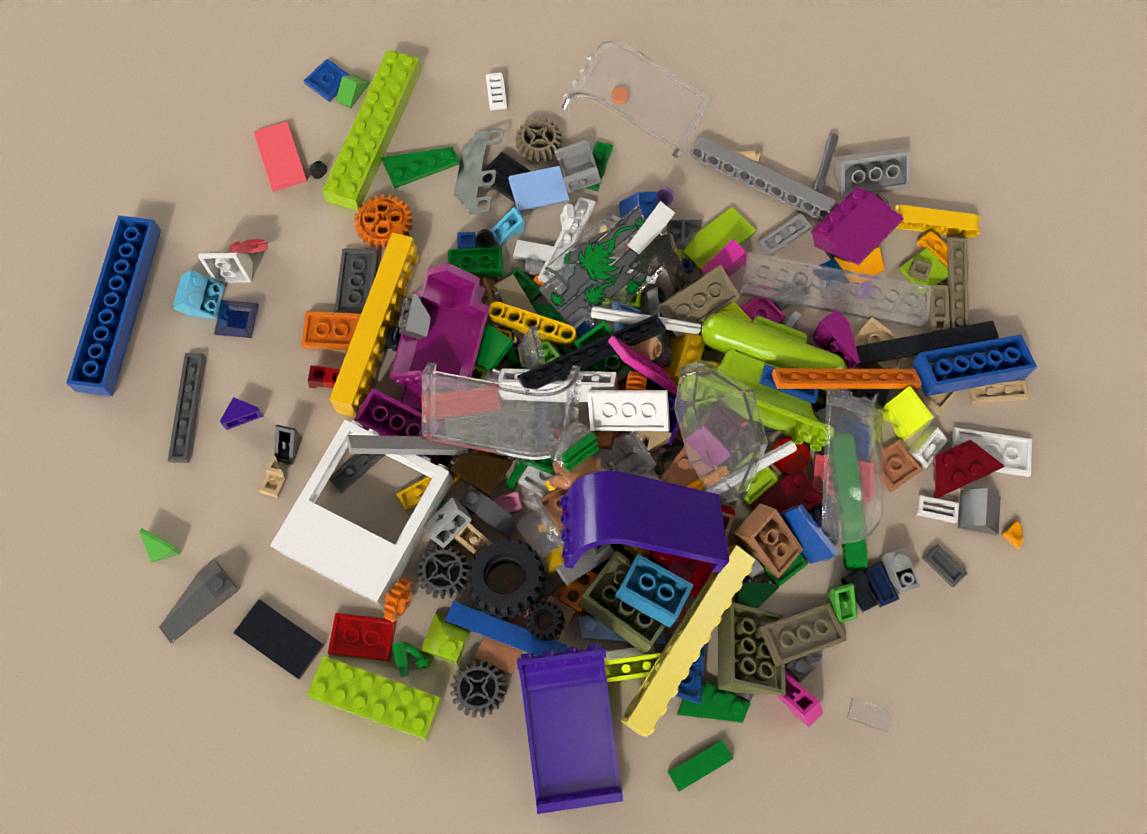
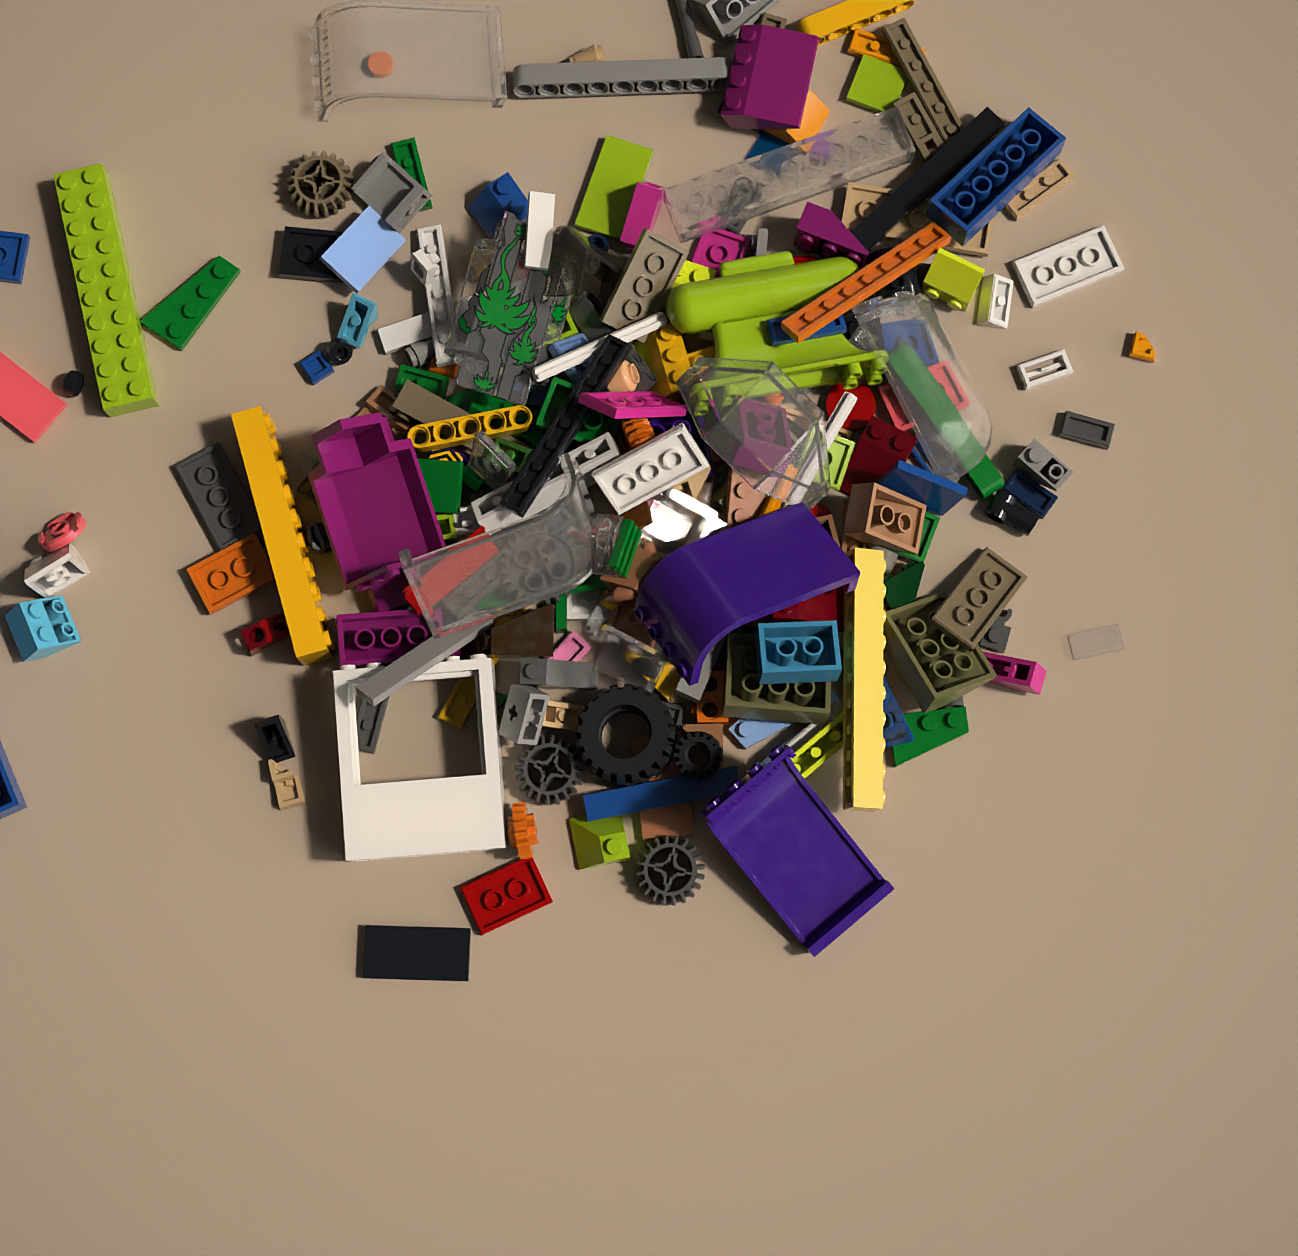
camera: 30 degrees left, 10 degrees up
(156, 547) = (210, 941): bright green slope -> none
(186, 408) = (125, 766): dark grey tile -> none
(203, 595) = (298, 963): dark grey wedge -> none
(236, 319) = (106, 627): clear blue slope -> none
(239, 413) = (194, 735): dark purple slope -> none
(351, 89) = (40, 252): bright green slope -> none
(375, 697) = (565, 948): lime brick -> none
(382, 220) = (177, 399): orange gear -> none
(401, 657) = (561, 885): green plant -> none
(415, 318) = (332, 504): slope -> none
(470, 171) = (263, 277): piece -> none
(478, 261) = (347, 388): green tile -> none
(493, 81) = (214, 136): white slope -> none
(665, 195) = (519, 169): medium lavender tile -> none
(683, 231) = (570, 203): dark grey wing -> none
(700, 765) = (950, 803): green tile -> none
(785, 235) = (690, 135): light grey plate -> none
(843, 602) = (1002, 539): bright green slope -> none
(898, 466) = (975, 344): nougat tile -> none
(920, 269) = (871, 88): dark tan tile -> none
(962, 466) = (1045, 305): dark red wing -> none
(979, 511) = (1090, 344): dark grey slope -> none

